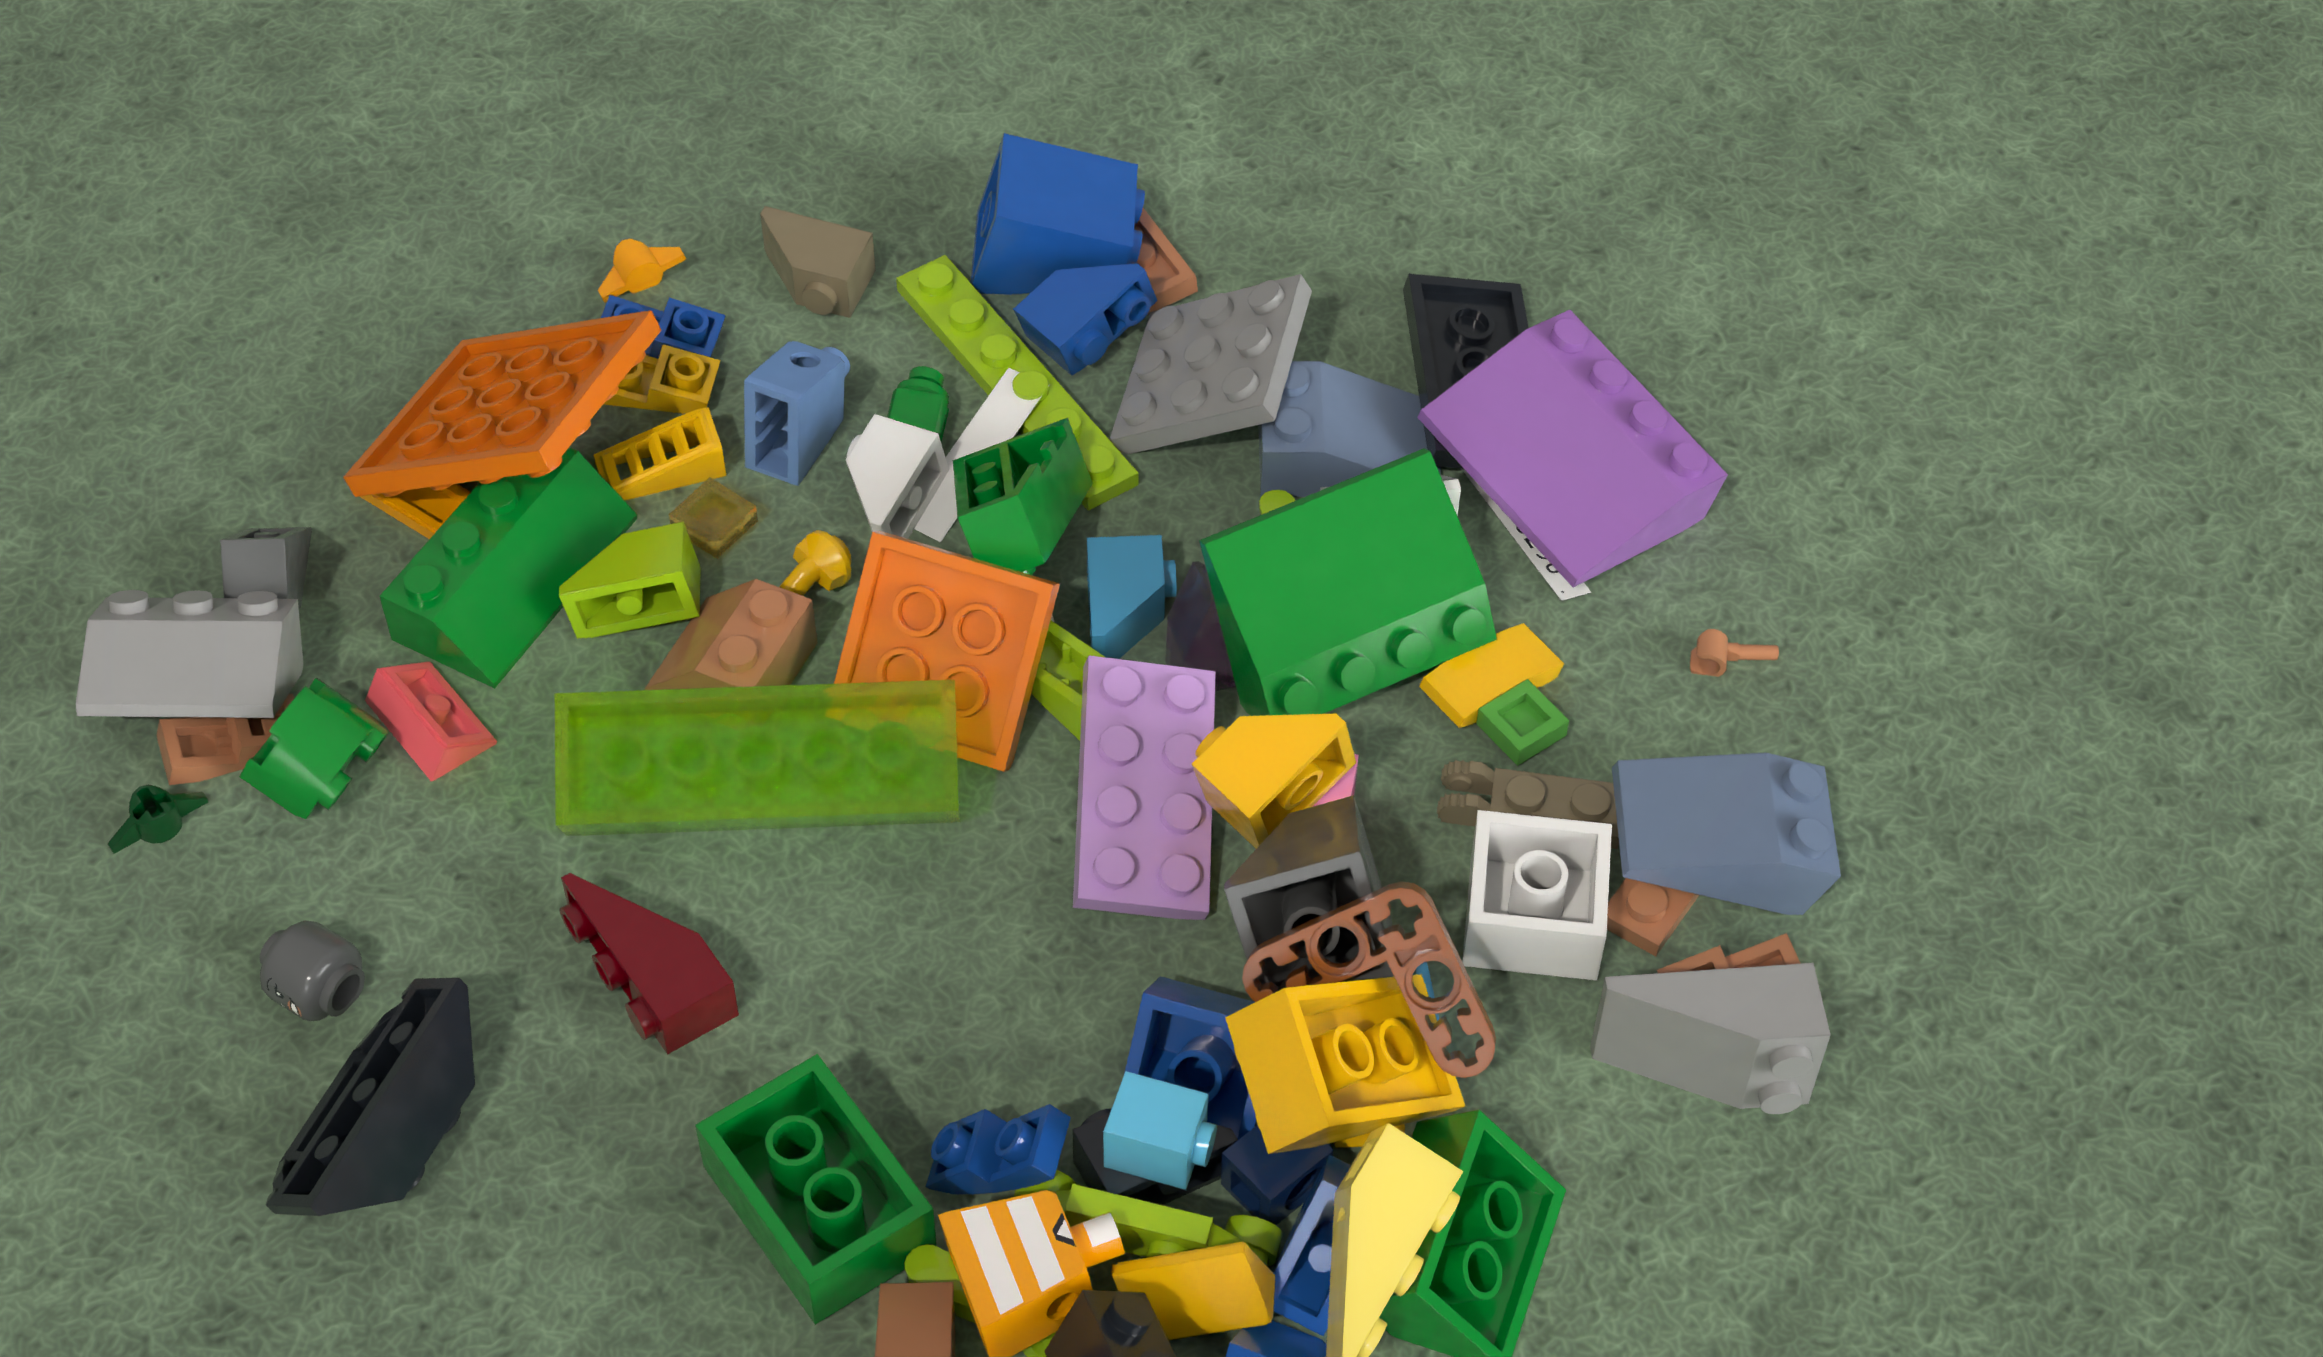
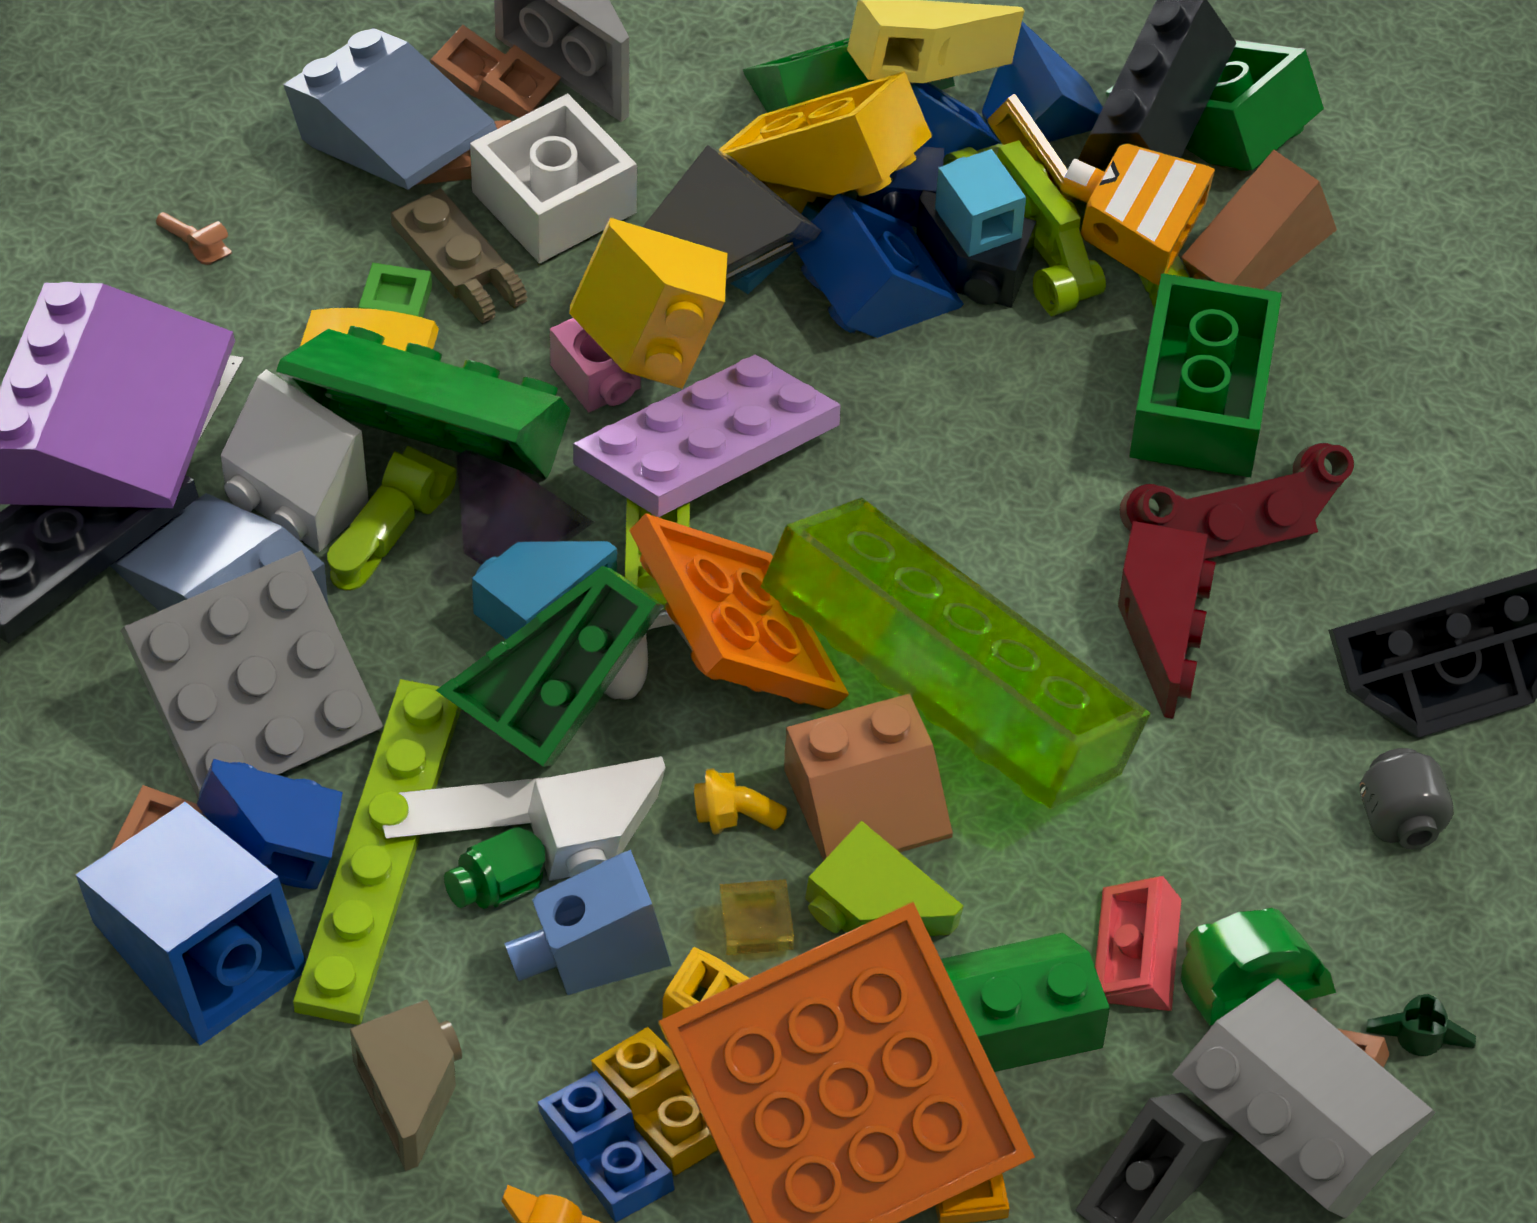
camera: 135 degrees left, 0 degrees up
(665, 1107) = (1249, 513): none -> dark red plate
(995, 1155) = (1066, 322): blue slope -> none
(1403, 954) = (727, 121): dark orange beam -> none

